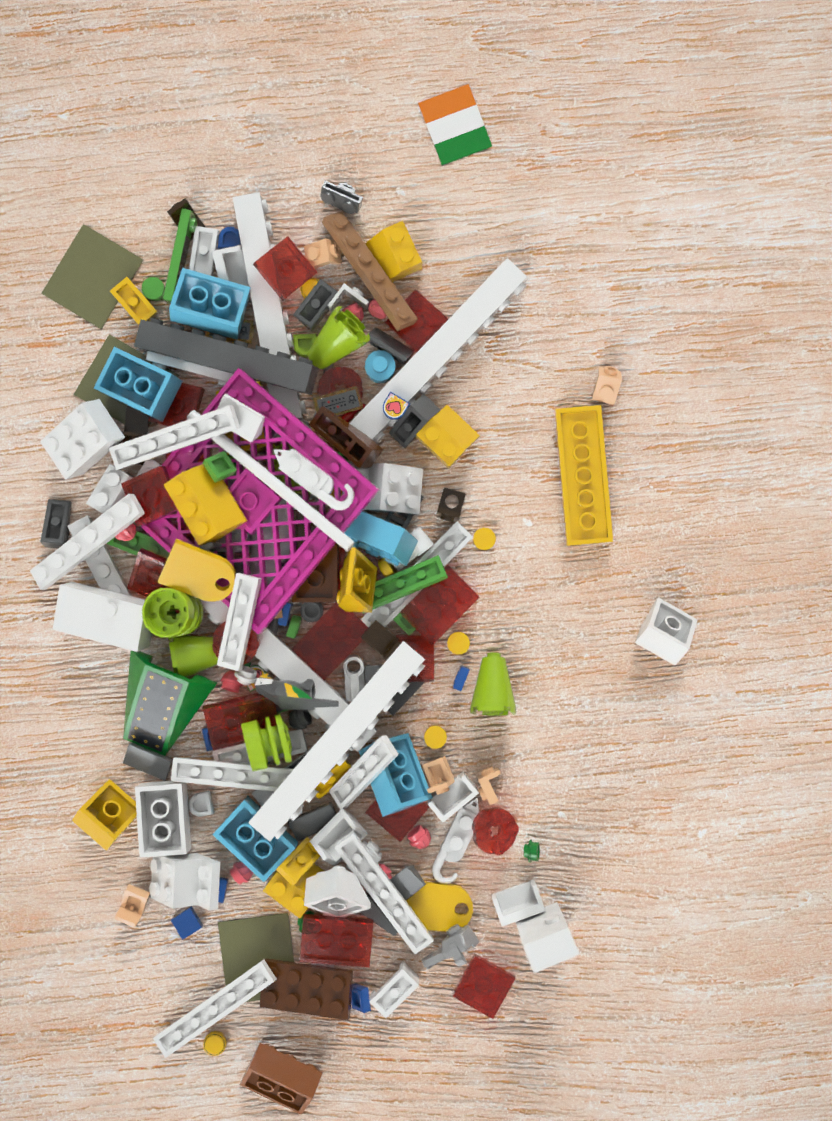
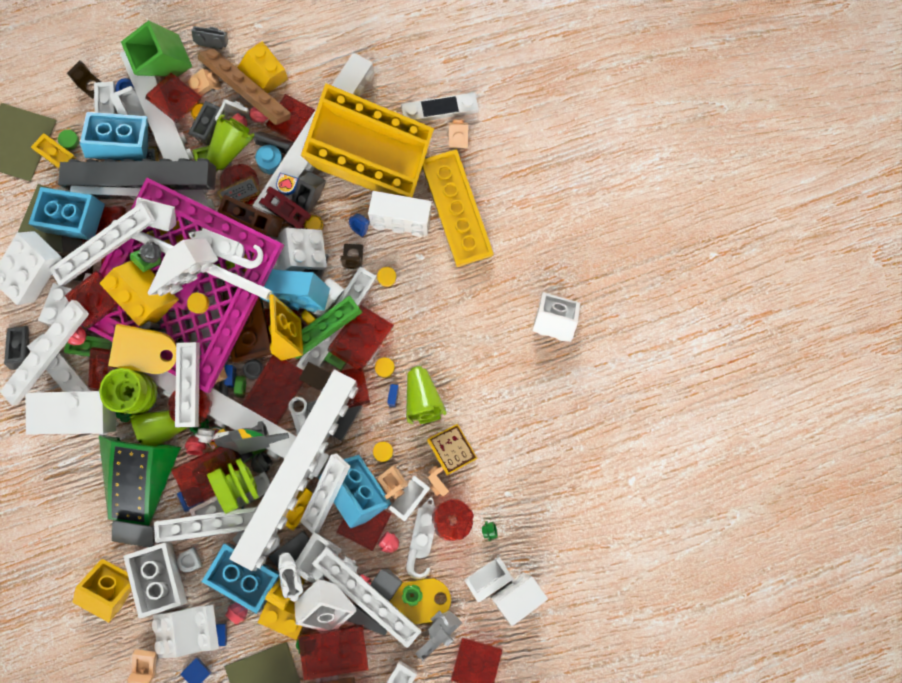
camera: 20 degrees left, 10 degrees down
(185, 228) = (85, 99): bright green plate -> none
(227, 463) = (150, 252): none -> dark grey plate
(263, 493) = (182, 266): none -> white slope
(269, 533) = (198, 303): none -> yellow piece
(275, 207) = (155, 51): none -> bright green slope
(307, 853) = (289, 577): none -> white animal
(386, 436) = (285, 208): none -> dark red plate
(414, 456) = (314, 222): none -> yellow piece
(432, 906) = (412, 601): none -> bright green plate
(447, 436) = (336, 202): yellow slope -> none
(466, 469) = (359, 224): none -> blue tile
(499, 379) = (366, 143): none -> yellow slope
(512, 753) = (452, 449): none -> piece
(517, 472) = (399, 213): none -> white brick
(593, 347) = (441, 107): none -> white plate

